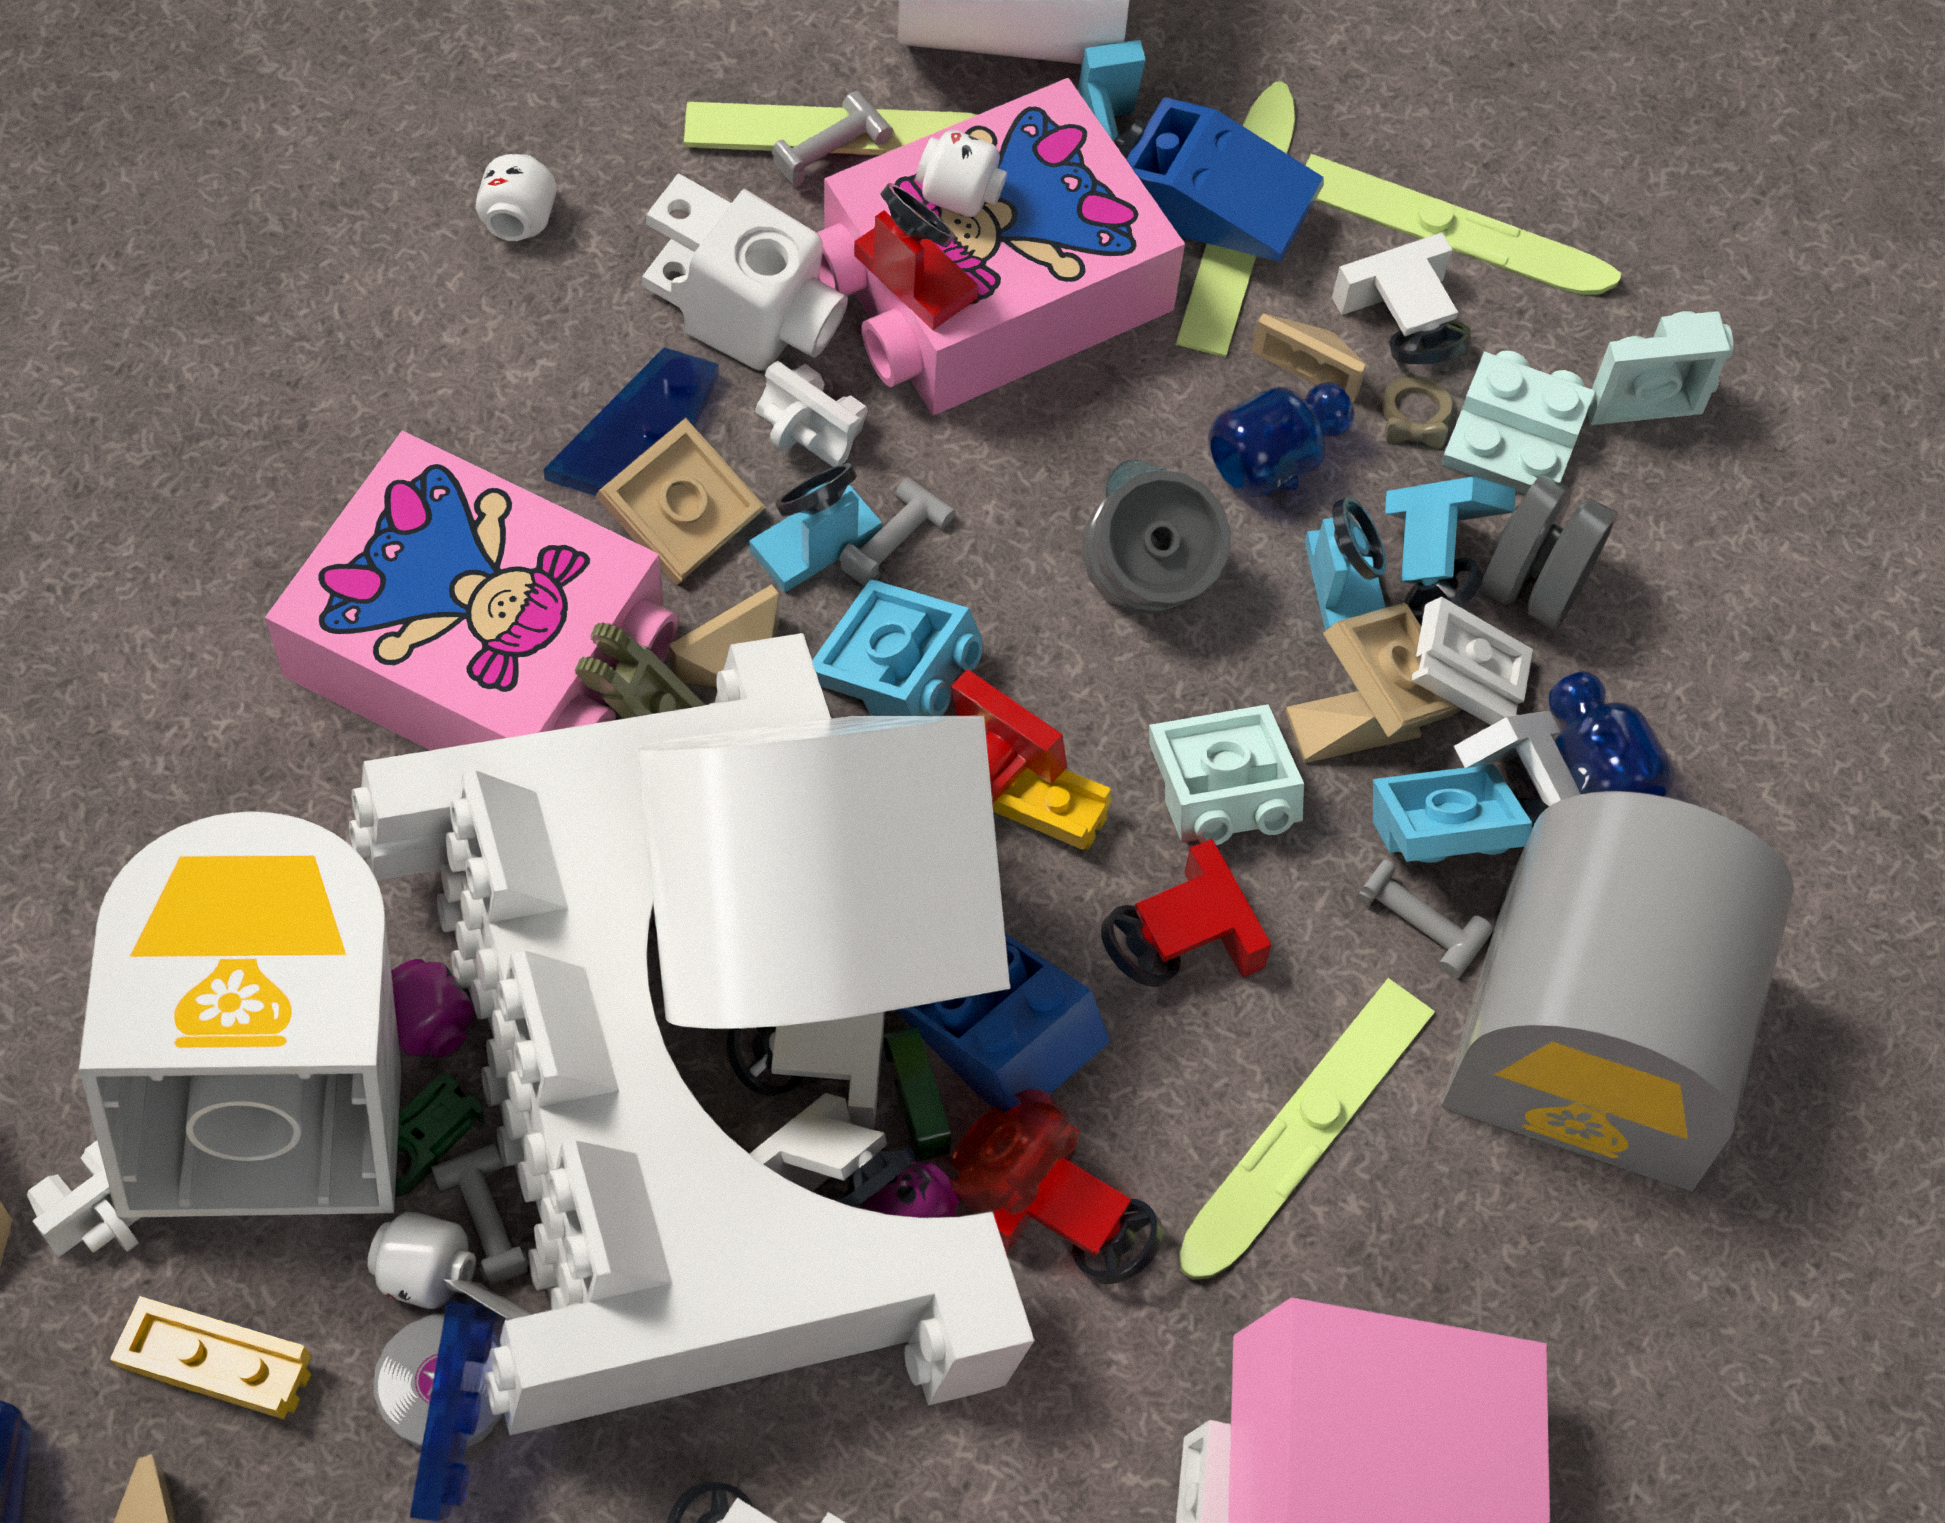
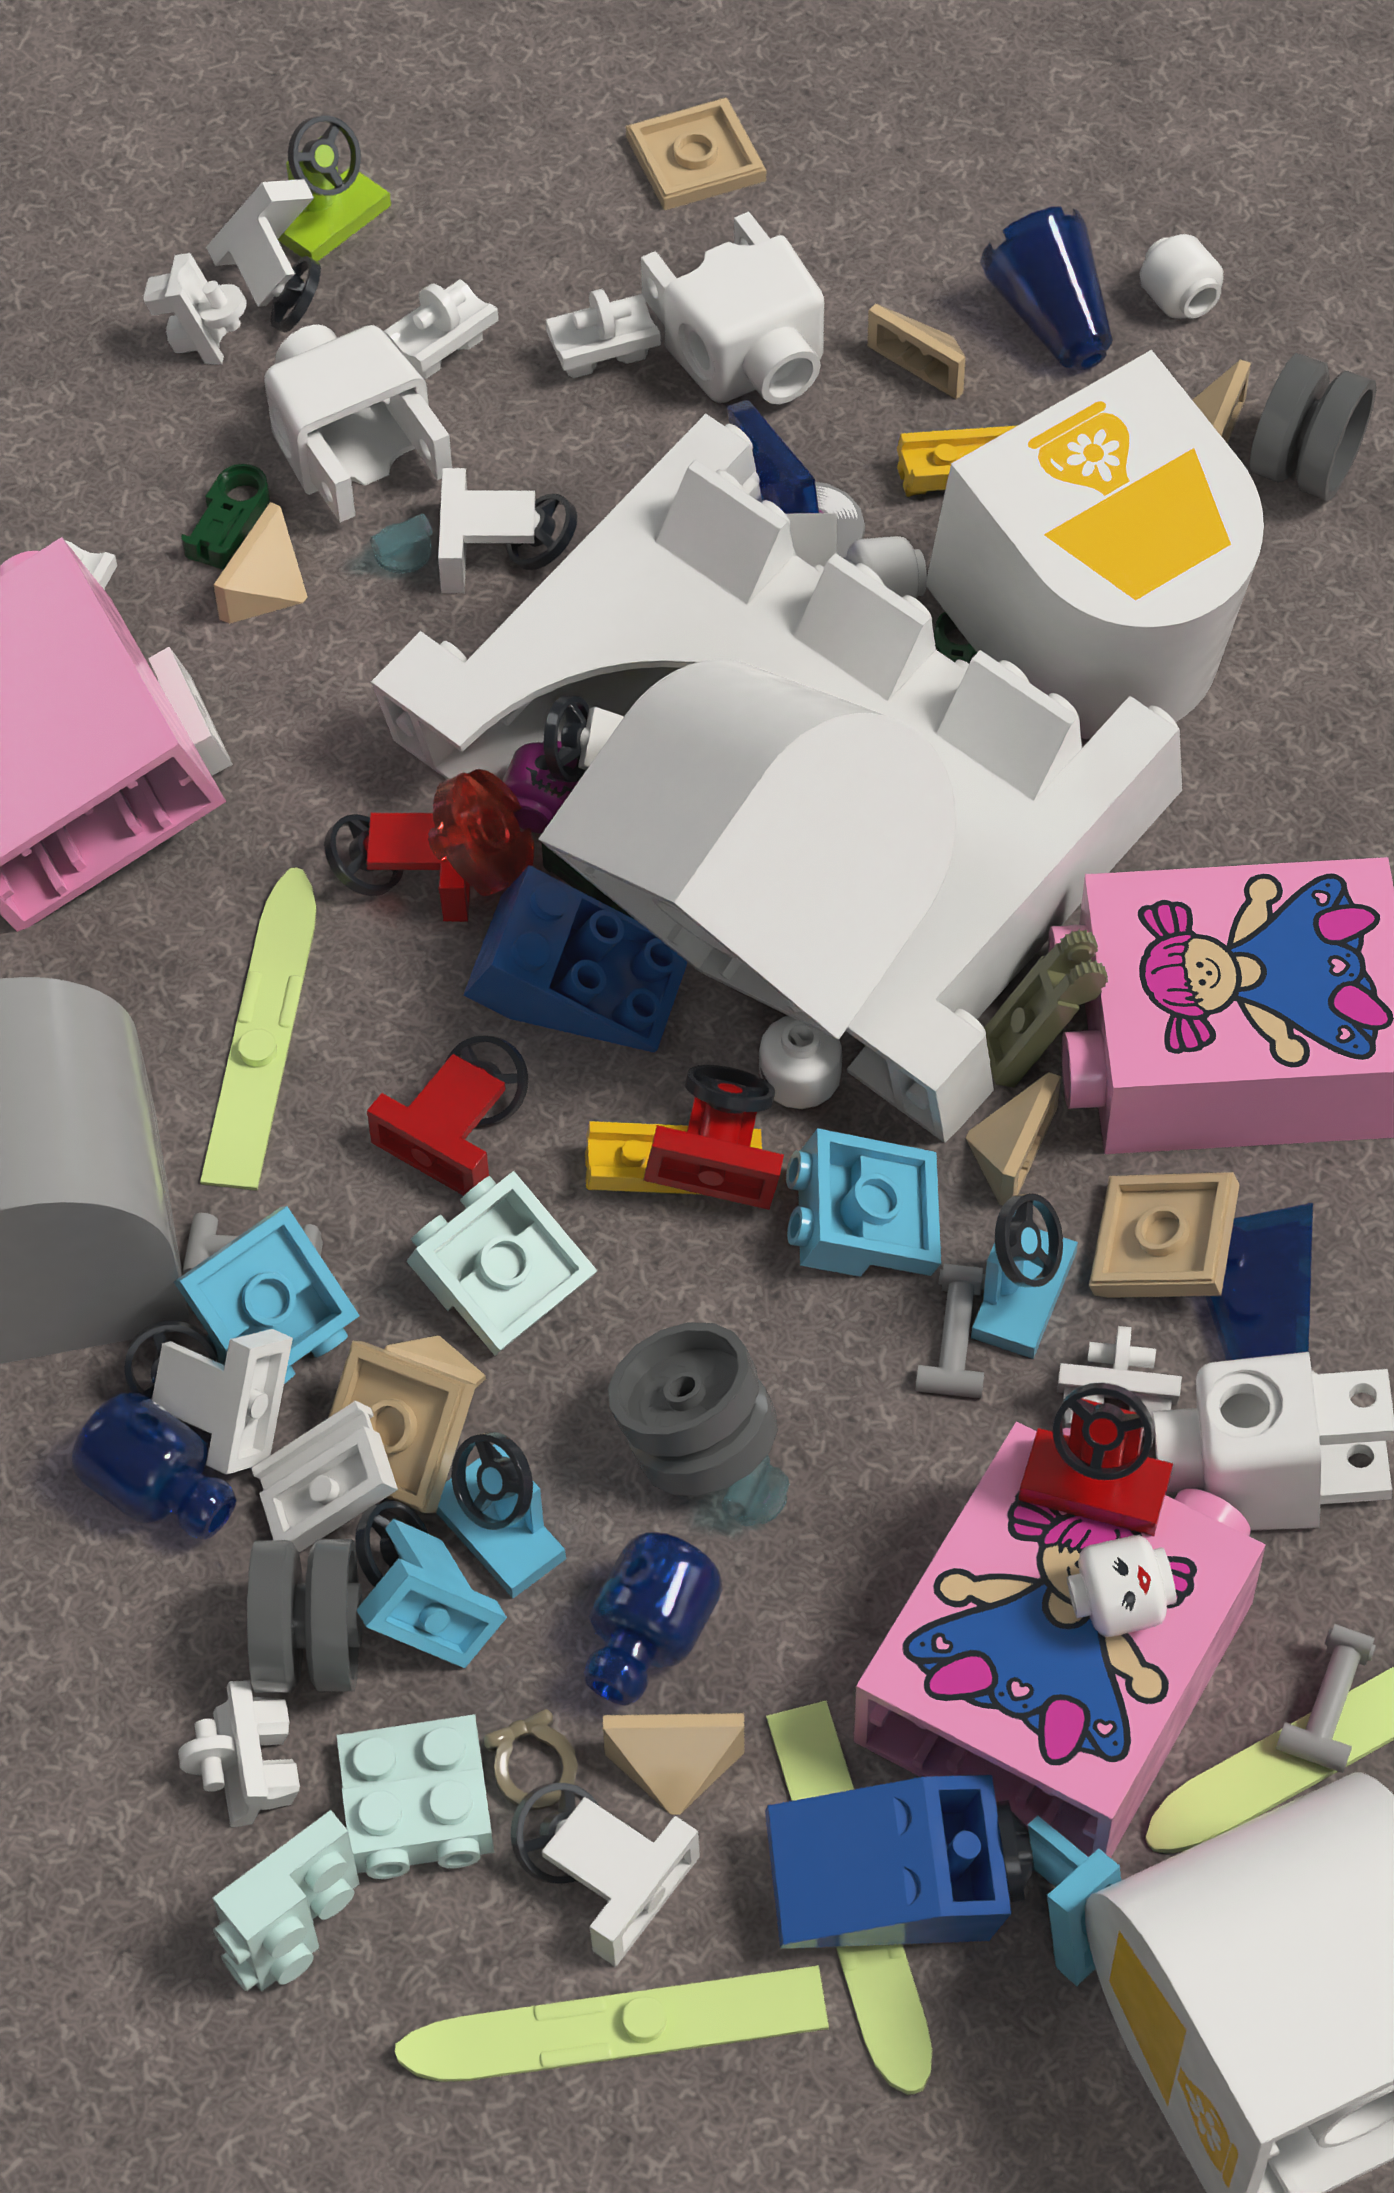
camera: 155 degrees right, 5 degrees down
(1644, 510) = (231, 1756): none -> white hips

